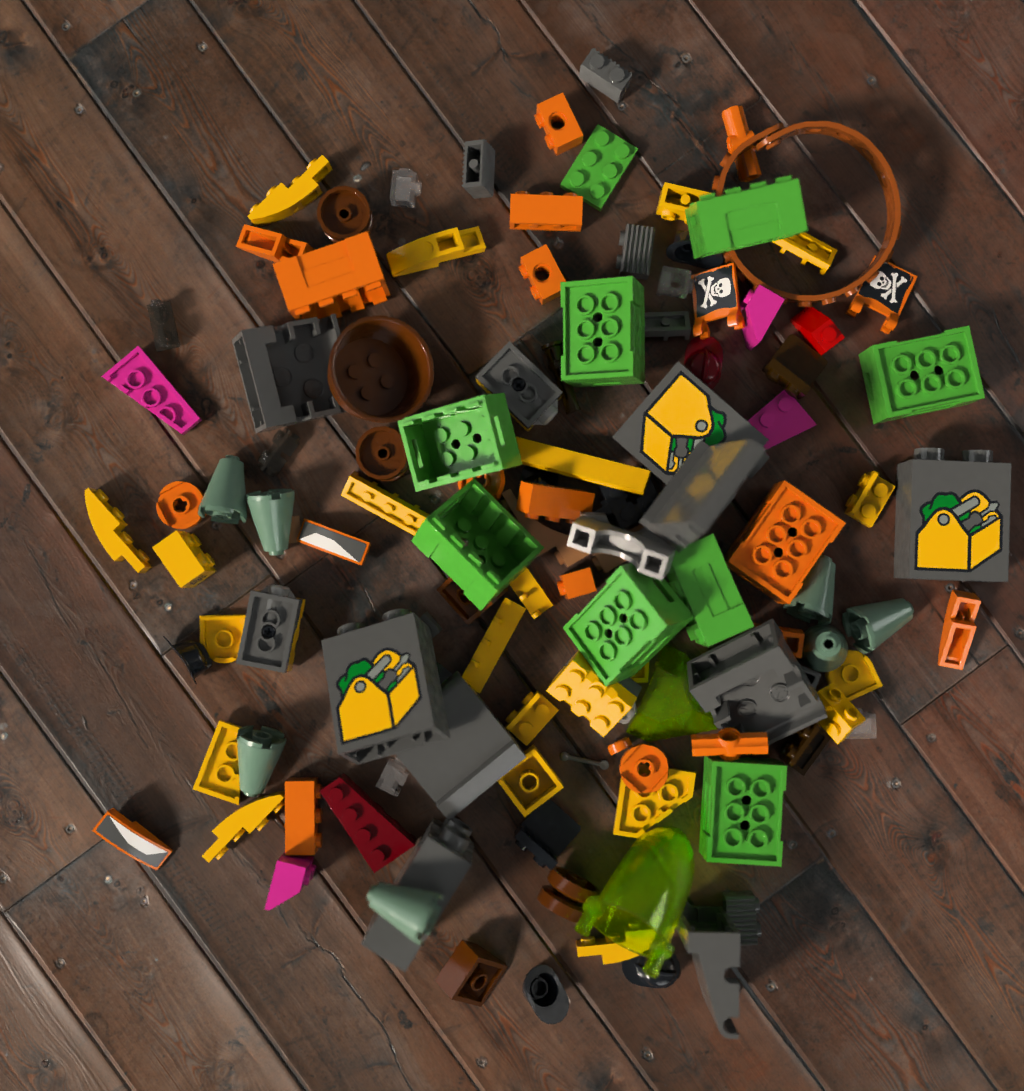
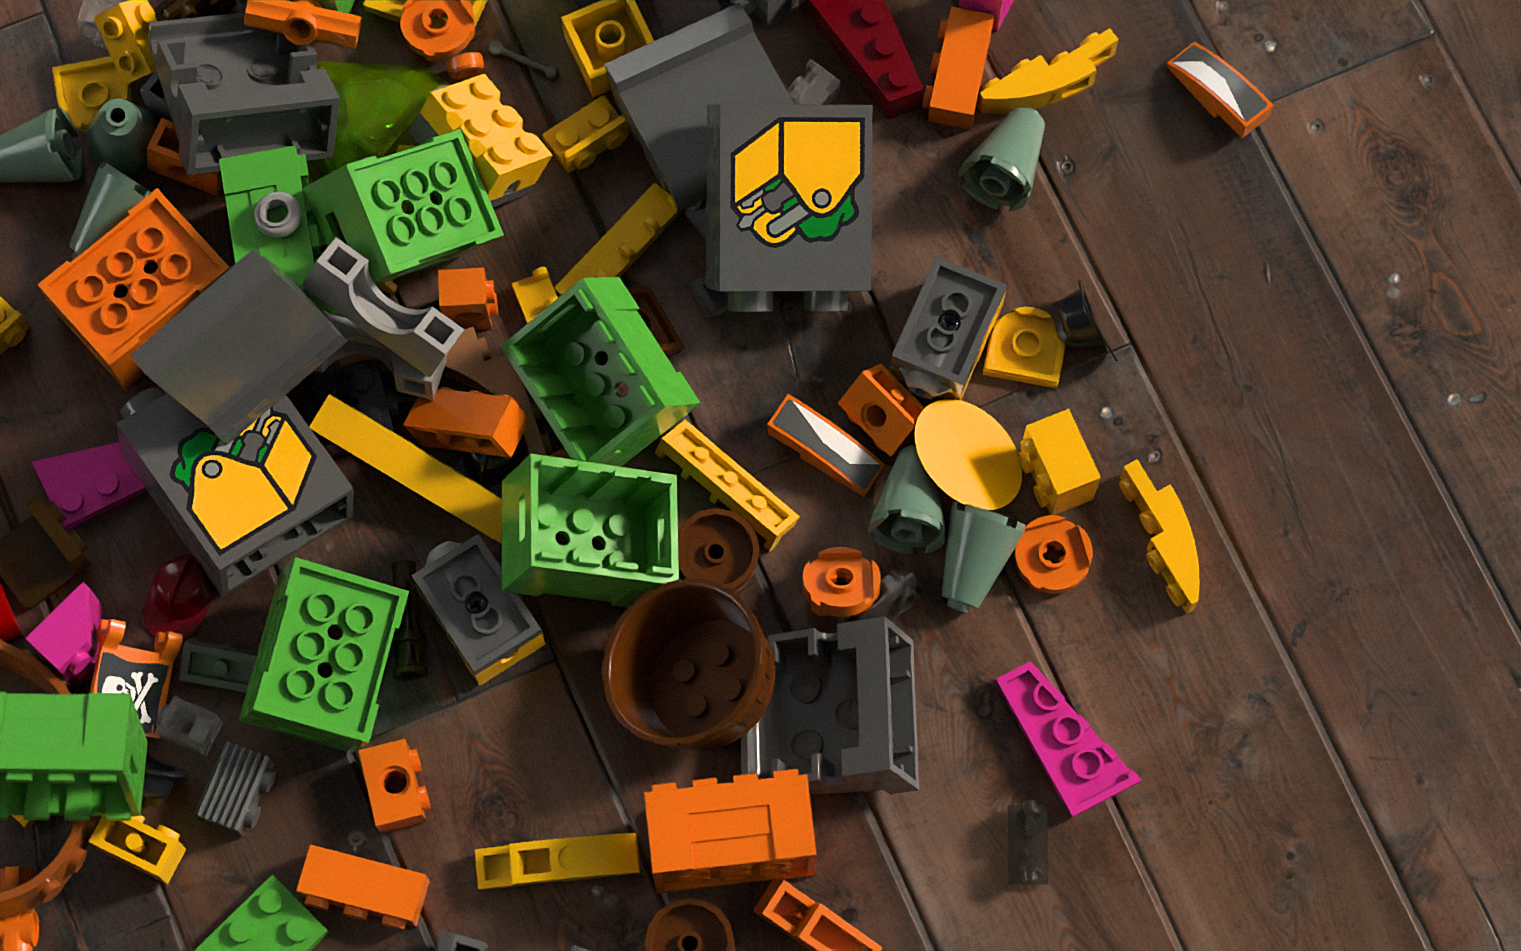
camera: 160 degrees left, 15 degrees down
(220, 766) = (1066, 164): yellow wing -> none
(243, 552) = (968, 454): none -> yellow sticker
(297, 467) = (839, 600): none -> orange plate
(300, 571) = (876, 390): none -> orange brick
(716, 594) = (269, 202): none -> light grey piece

